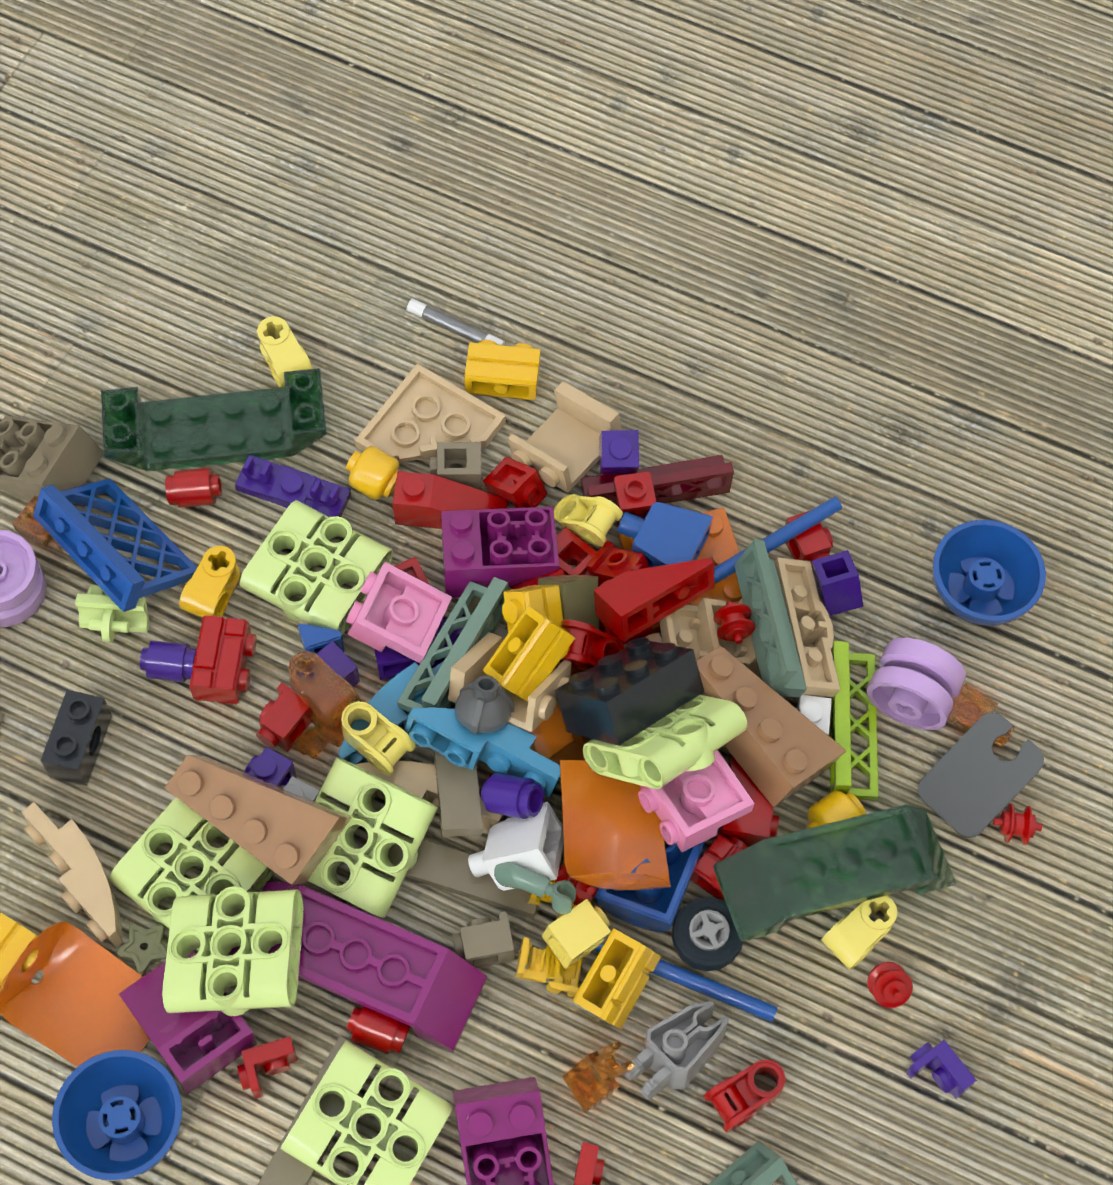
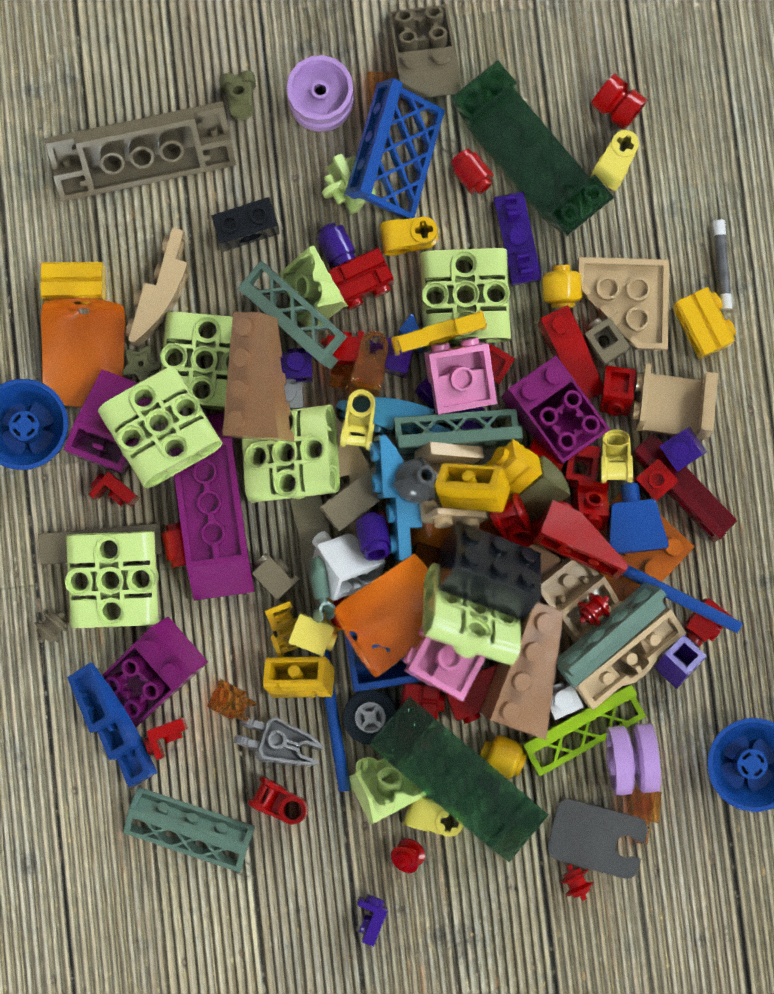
camera: 60 degrees right, 20 degrees up
(197, 710) = (314, 283): none -> yellowish green slope
(222, 750) = (289, 324): none -> sand green fence
(229, 316) = (618, 101): none -> red wheel
(339, 598) = (438, 332): none -> yellow piece
(797, 961) = (382, 788): none -> yellowish green slope

